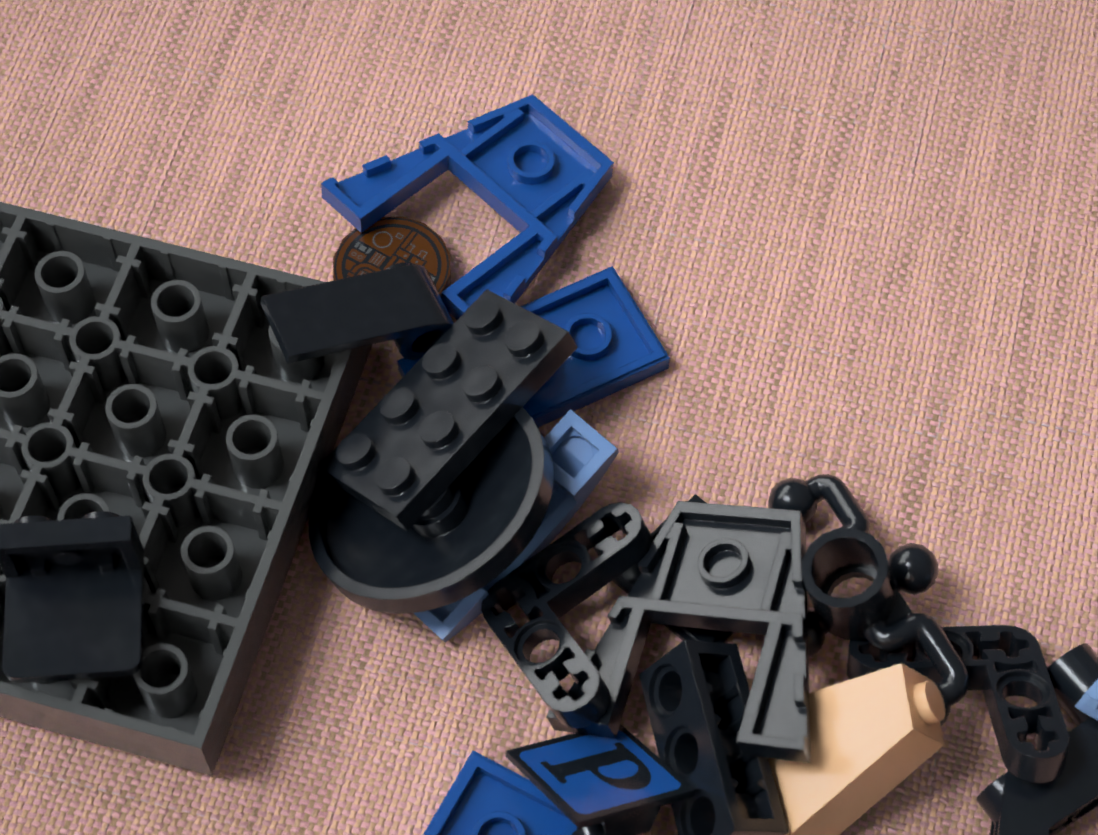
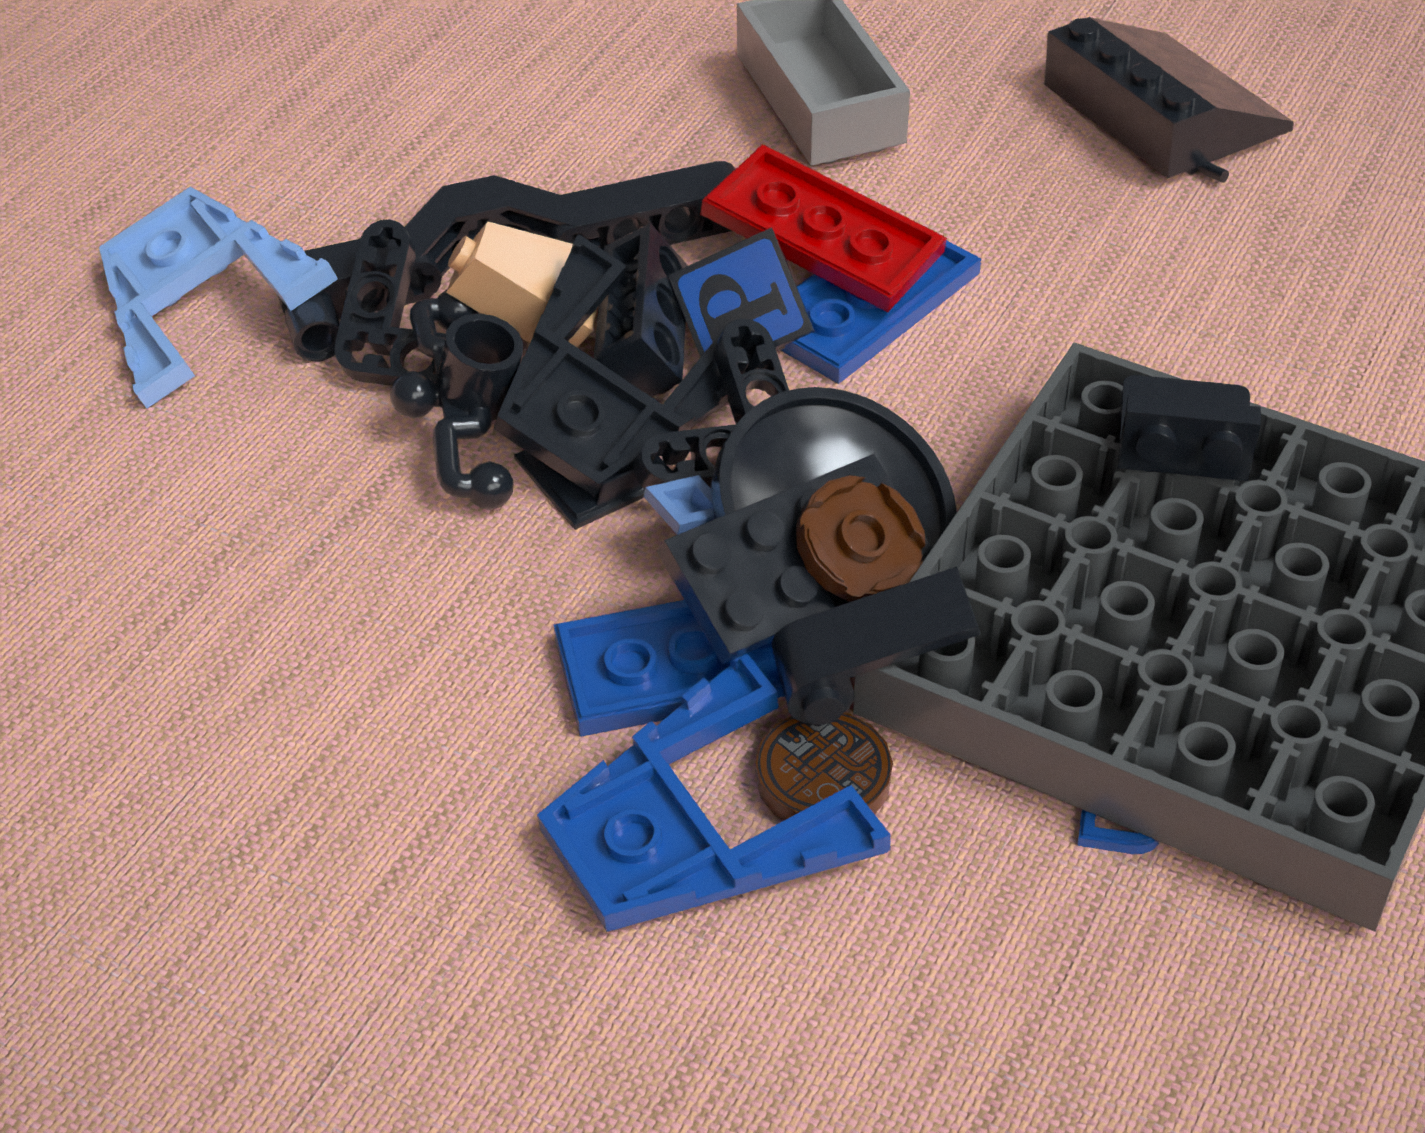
camera: 165 degrees left, 15 degrees down
(384, 428) = (859, 538): none -> reddish brown tile

